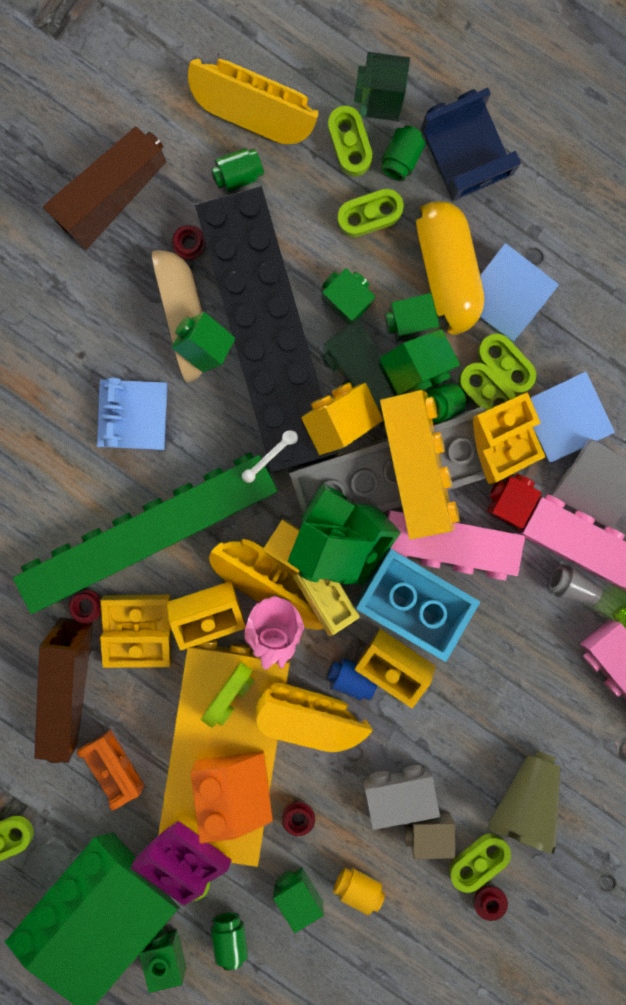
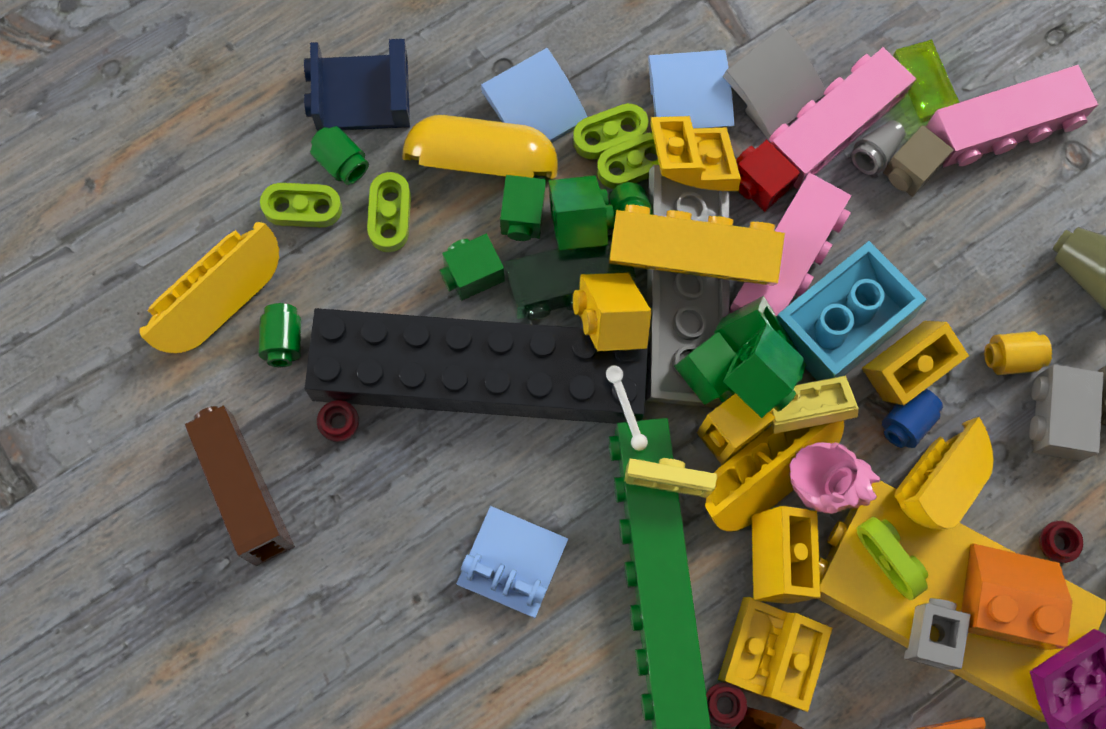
camera: 75 degrees left, 15 degrees down
(172, 754) = (953, 627): none -> light grey brick
(178, 297) = (416, 456): tan brick -> none
(202, 342) = (466, 434): green brick -> none
(227, 508) = (670, 476): none -> light yellow plate
(382, 86) = (262, 144): clear green brick -> none
(436, 746) = (1018, 352): none -> yellow brick
(571, 621) = (917, 161): none -> dark tan brick

